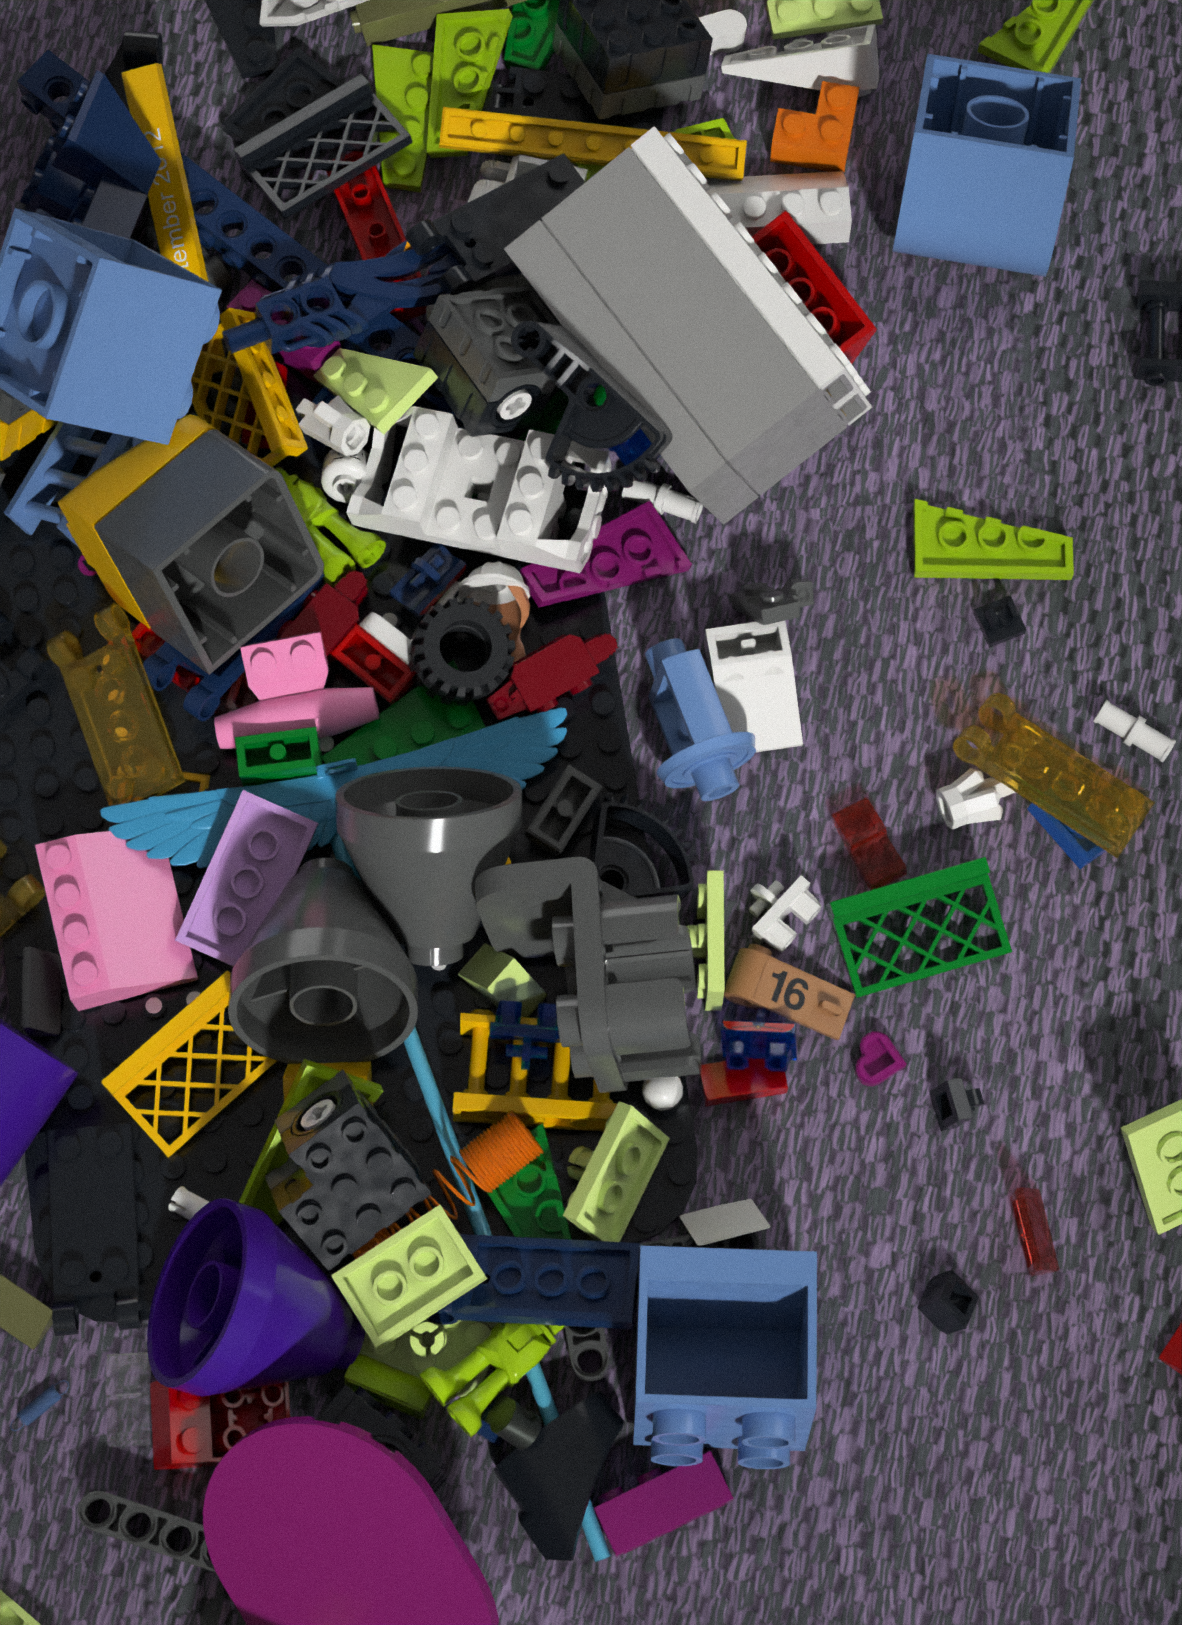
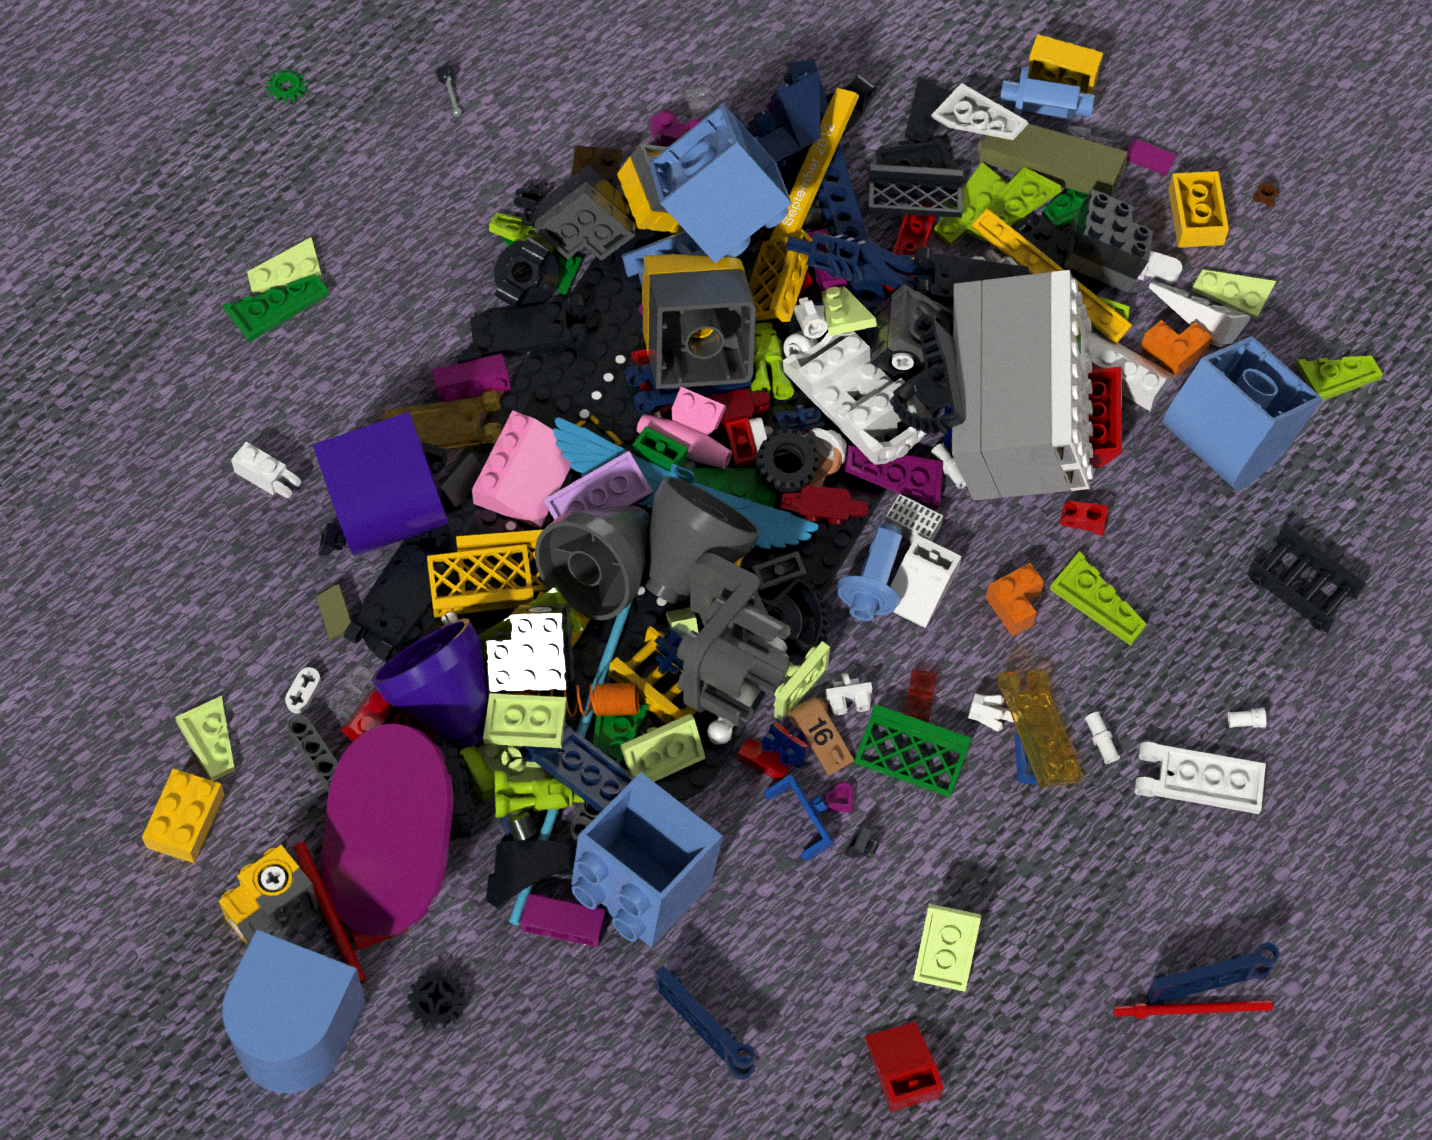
camera: 35 degrees right, 10 degrees down
(39, 1405) = (318, 665): medium blue piece -> none
(45, 1450) = (298, 687): none -> white beam
(118, 712) = (602, 379): clear yellow hinge -> none
(205, 1142) = (478, 600): none -> yellow fence
(676, 610) = (914, 519): none -> white brick
(724, 1222) = (705, 815): white sticker -> none
(771, 605) = (959, 545): dark grey hinge -> none
(860, 1105) = (812, 808): none -> blue piece
(880, 627) = (1011, 598): none -> orange brick
(884, 446) = (1085, 516): none -> red leg
(948, 1302) = (780, 934): black slope -> none
(999, 621) = (1076, 639): black tile -> none
(999, 1511) = (719, 1039): none -> dark blue hinge
(1034, 1231) = (851, 932): clear red slope -> none

